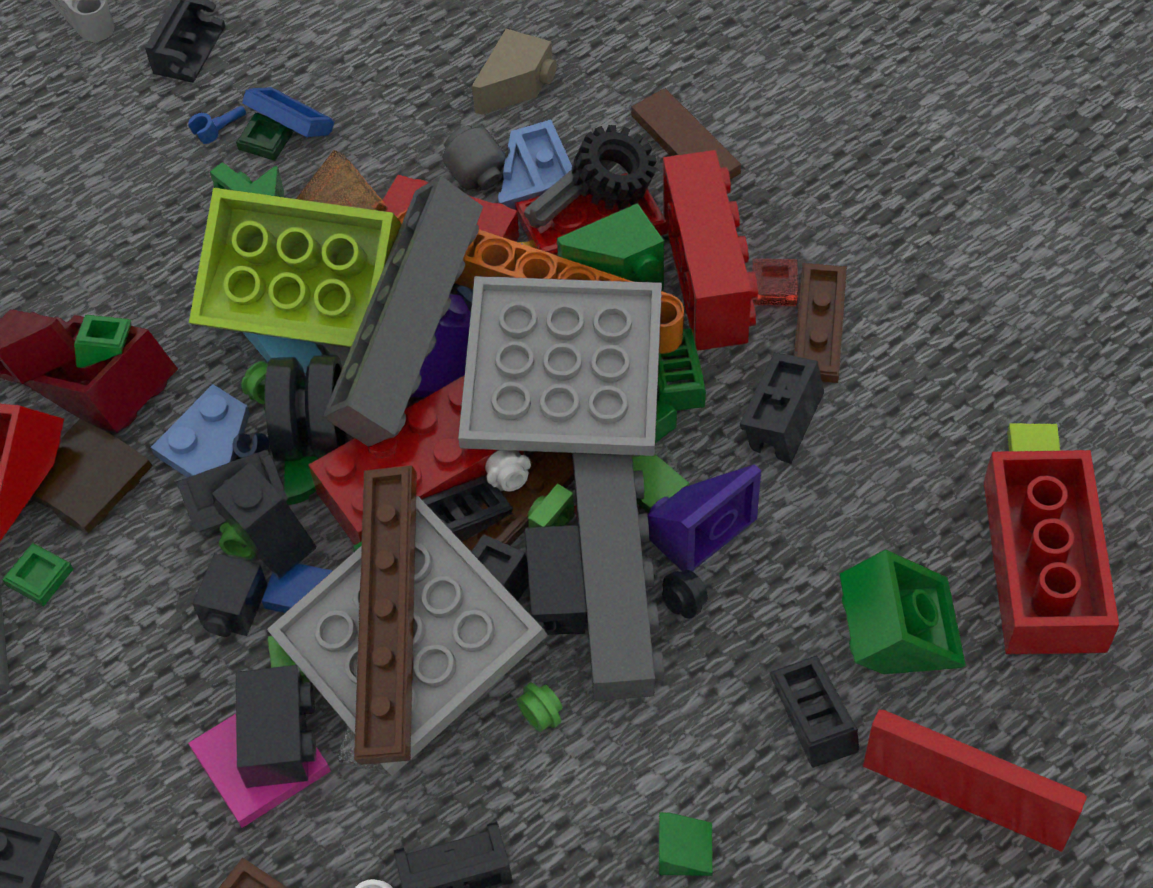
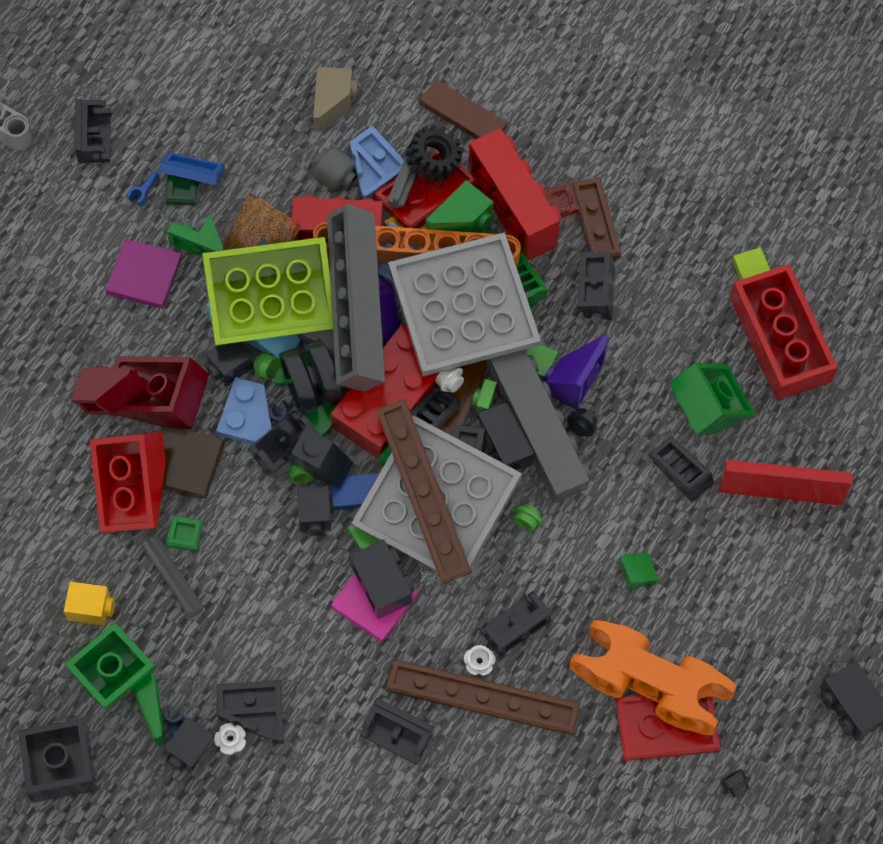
camera: 25 degrees left, 10 degrees up
(100, 339) = (161, 372): green slope -> none
(160, 223) = (143, 273): none -> magenta tile
(212, 358) = (229, 361): none -> black brick

